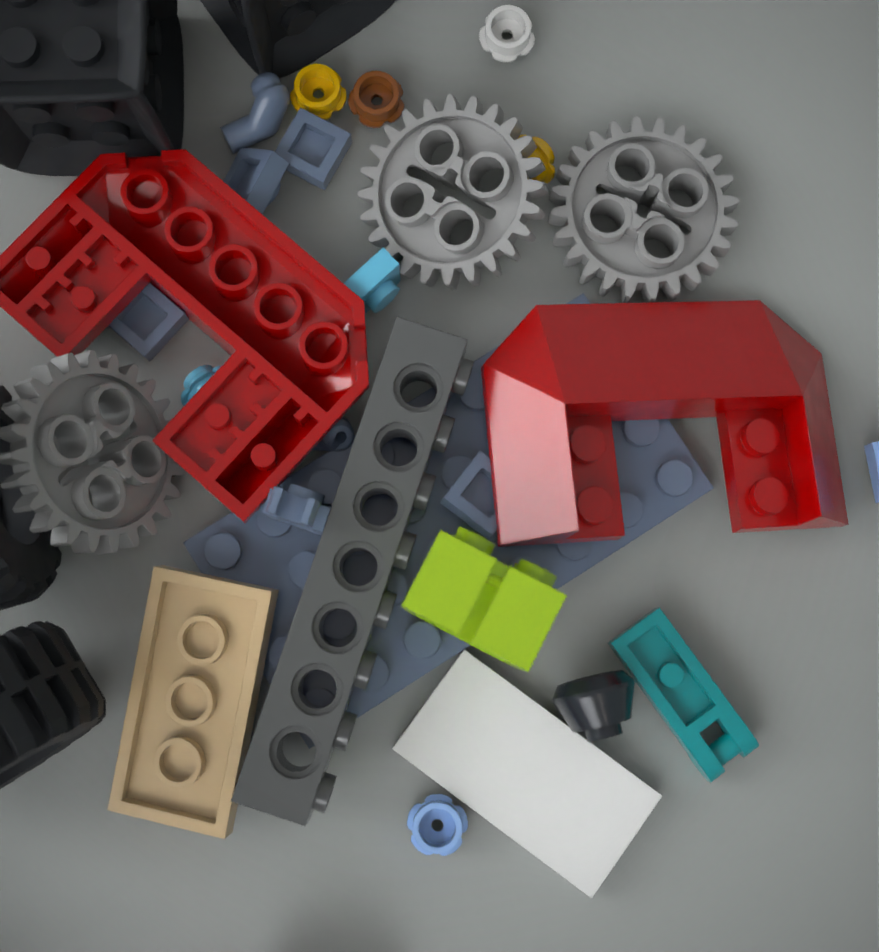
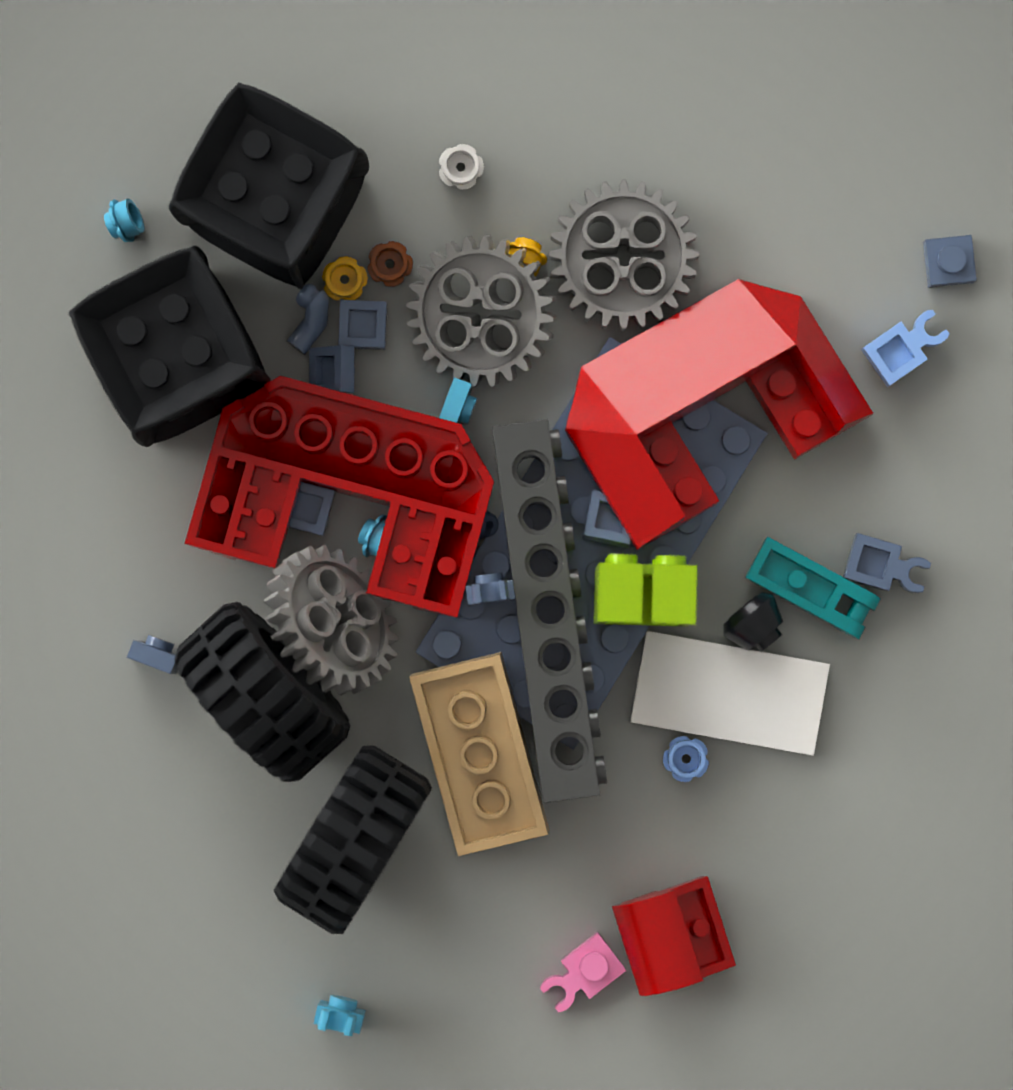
camera: 20 degrees left, 5 degrees up
(776, 704) = (878, 563): none -> sand blue plate

